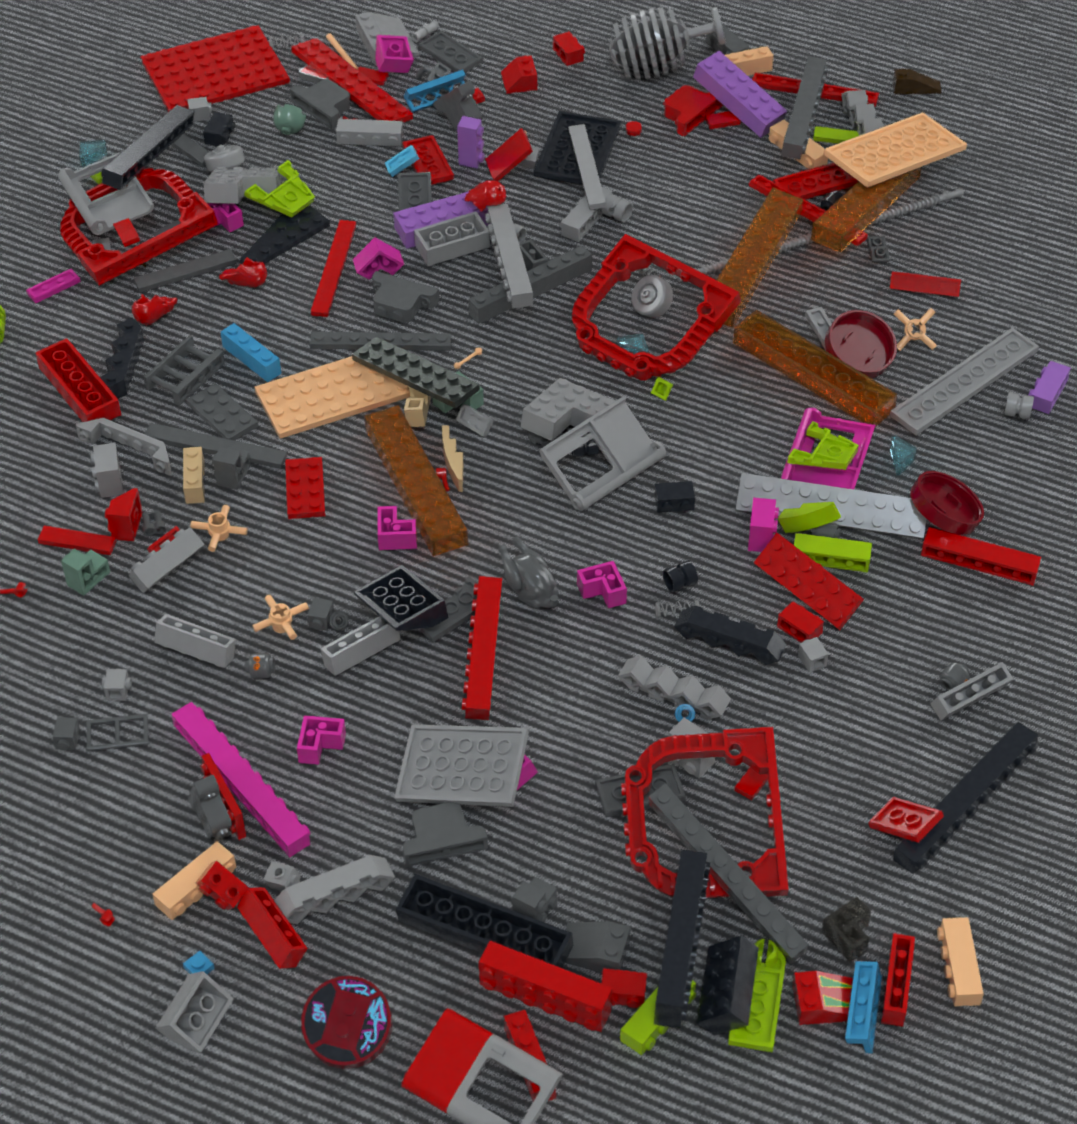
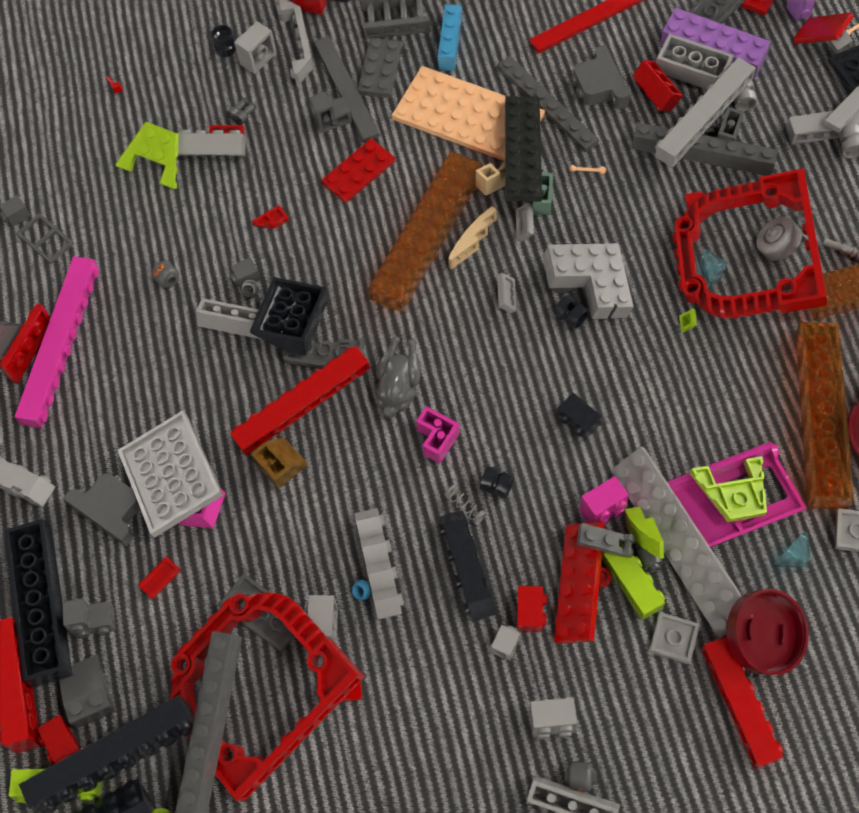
camera: 55 degrees right, 15 degrees up
(70, 488) = (223, 40): none -> black wheel
(77, 540) = (187, 82): red tile -> none
(84, 571) = (156, 108): sand green brick -> none
(116, 684) = (79, 204): light grey brick -> none
(124, 515) = (225, 89): red slope -> none
(126, 591) = (156, 145): none -> lime wing
(193, 475) = (292, 104): tan arch -> none
(195, 640) = (151, 218): light grey brick -> none
(218, 527) = (269, 150): light nougat bar -> none
(280, 617) = (218, 251): light nougat bar -> none
(285, 568) = (272, 218): none -> red tile
(319, 734) = (126, 357): dark pink brick -> none
(377, 256) = (622, 35): dark pink brick -> none
(393, 532) = (359, 255): dark pink brick -> none
(441, 473) = (451, 241): red hand -> none
(446, 270) = (657, 86): none -> red brick
(486, 194) = (744, 47): red piece -> none
(522, 698) = (278, 461): none -> pearl gold slope
(524, 470) = (506, 292): none -> light grey plate
(541, 840) = (159, 578): none -> red tile
(564, 320) = (691, 197): none -> red tile
(621, 442) = (595, 333): light grey piece -> none
(796, 538) = (605, 540): none -> dark grey plate
(899, 562) = (674, 638): none -> light grey tile
(899, 660) = (553, 718): none -> light grey brick

